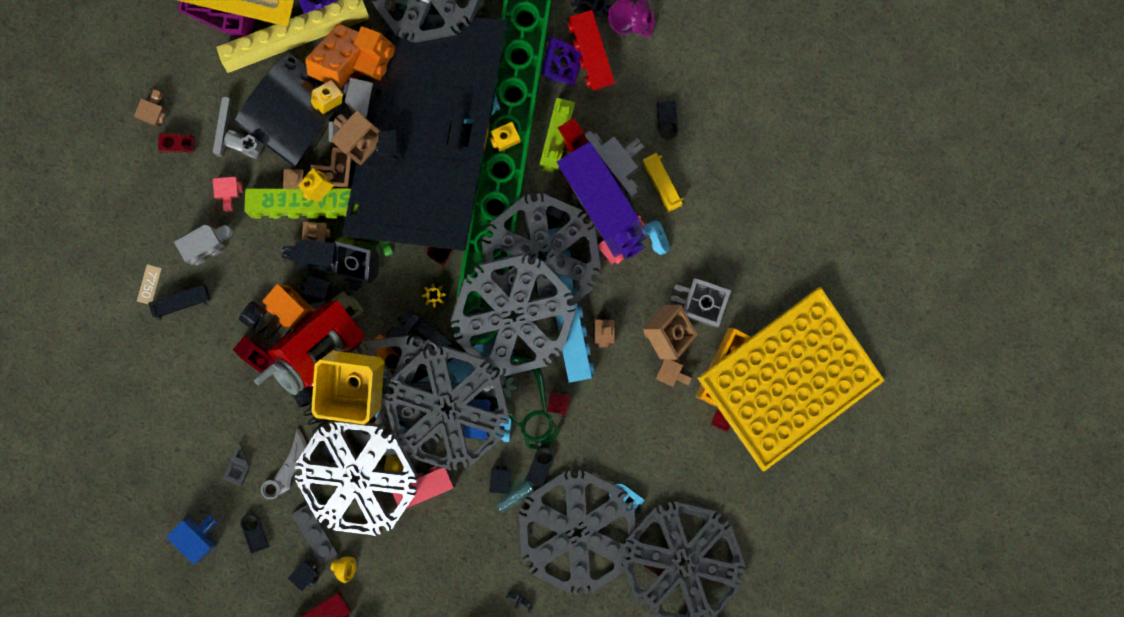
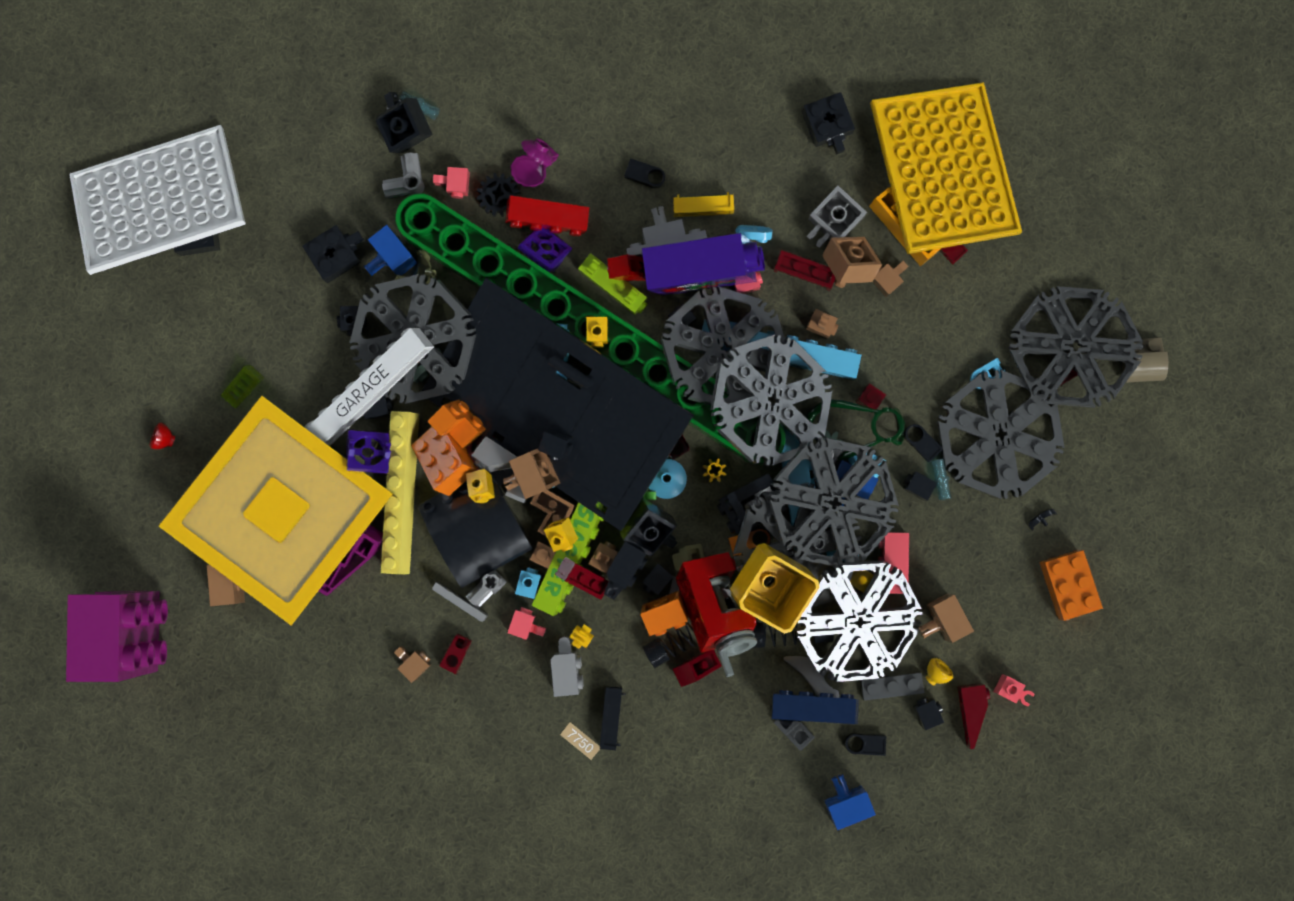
camera: 60 degrees left, 0 degrees up
(238, 244) = (581, 636): none -> yellow gear
(263, 474) = (815, 709): none -> dark blue piece
(264, 178) = (528, 583): none -> medium azure brick
(287, 221) = (582, 578): none -> dark red container
(392, 554) = (947, 618): none -> medium nougat brick
(412, 267) = (675, 486): none -> medium azure dish
(644, 295) = (805, 270): none -> dark red container
(775, 262) = (824, 132): none -> black hinge

